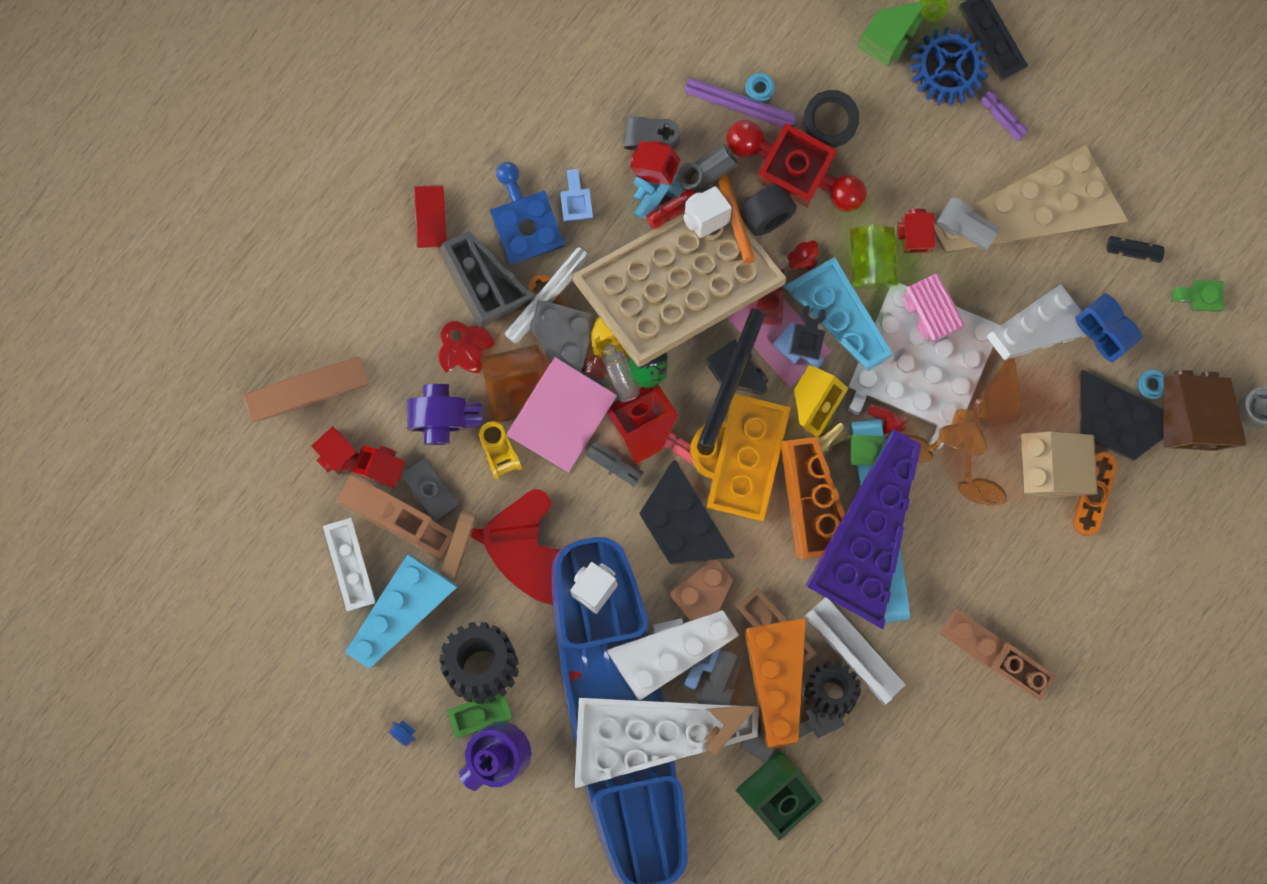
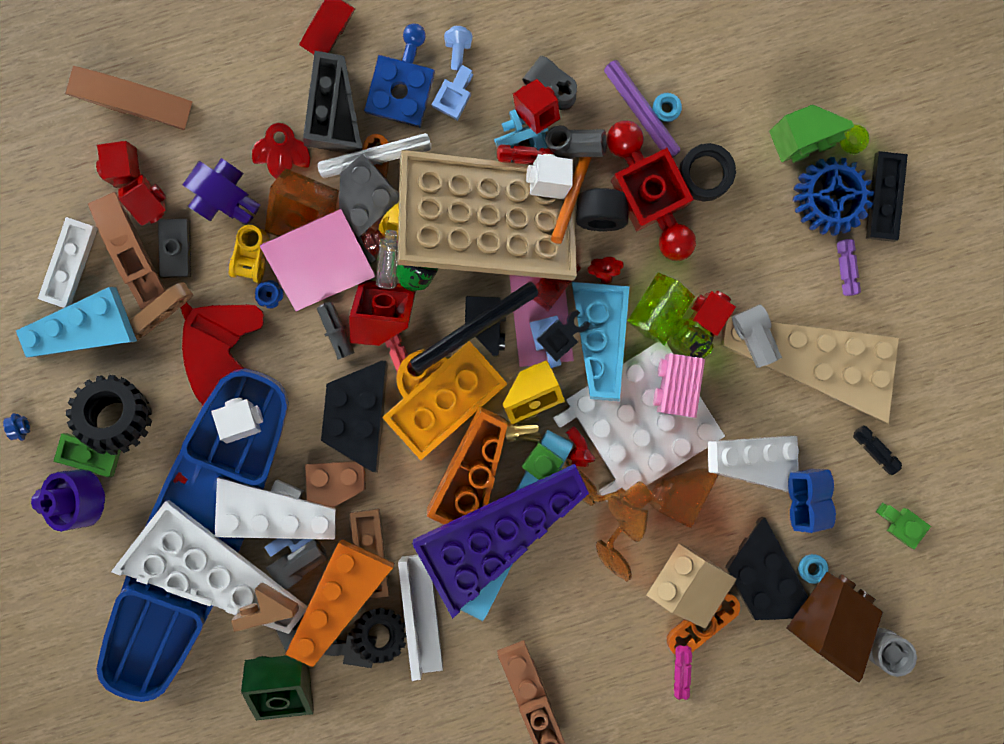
camera: 40 degrees right, 5 degrees up
(536, 465) = (261, 294): none -> blue plate
(548, 151) = (458, 39): none -> light blue plate
(916, 264) = (692, 339): none -> clear neon green head
(1105, 544) = (682, 672): none -> dark pink axle

